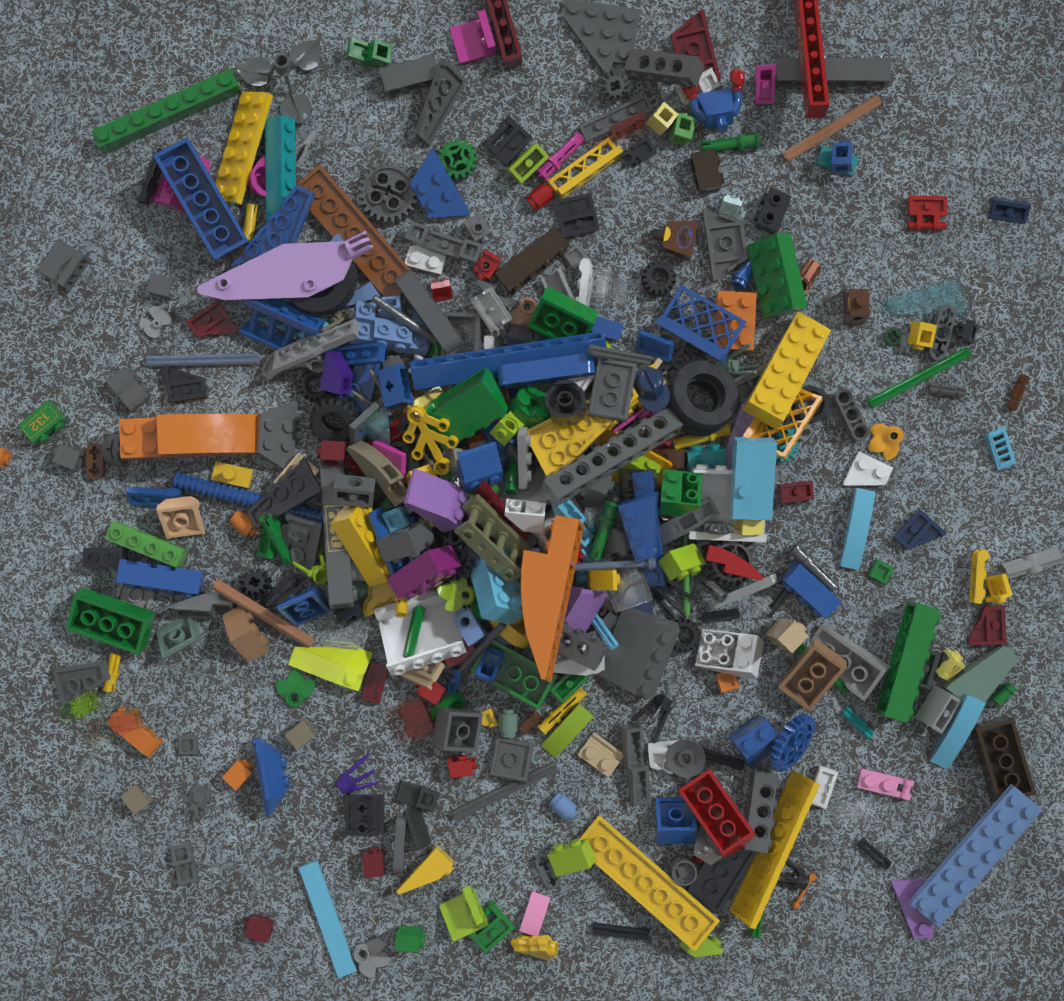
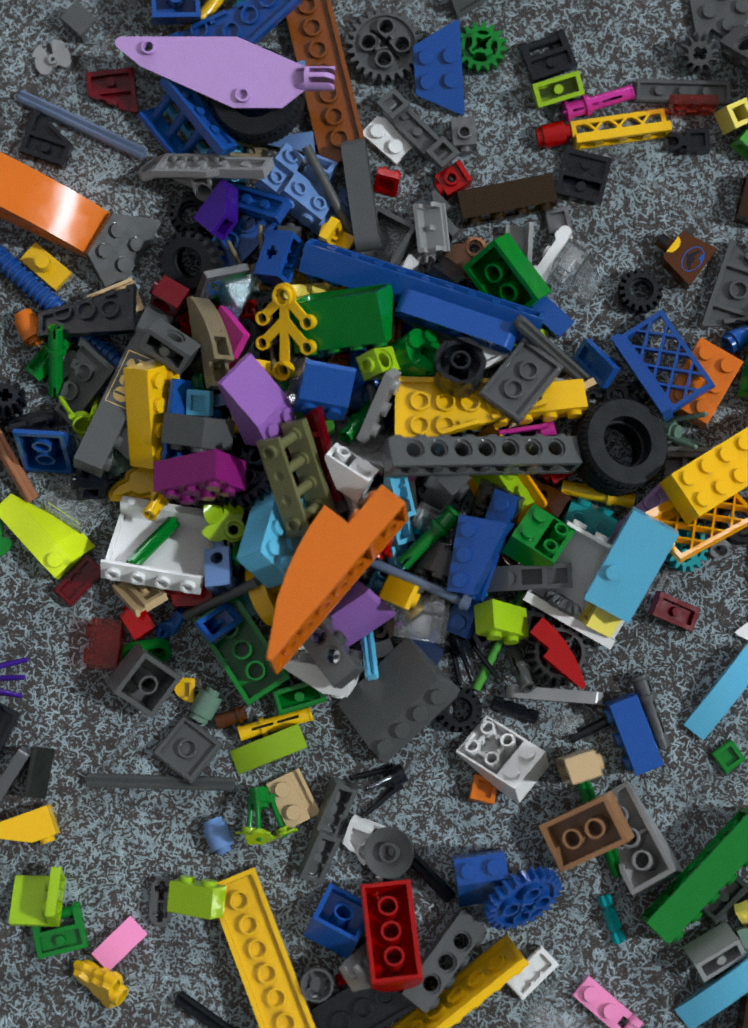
camera: 30 degrees right, 5 degrees down
(417, 795) = (59, 735): pearl dark grey slope -> none
(425, 349) = (334, 234): none -> yellow bracket
(461, 766) = (126, 726): red brick -> none
(578, 769) = (259, 801): none -> plant
(651, 389) = (566, 404): dark blue piece -> none

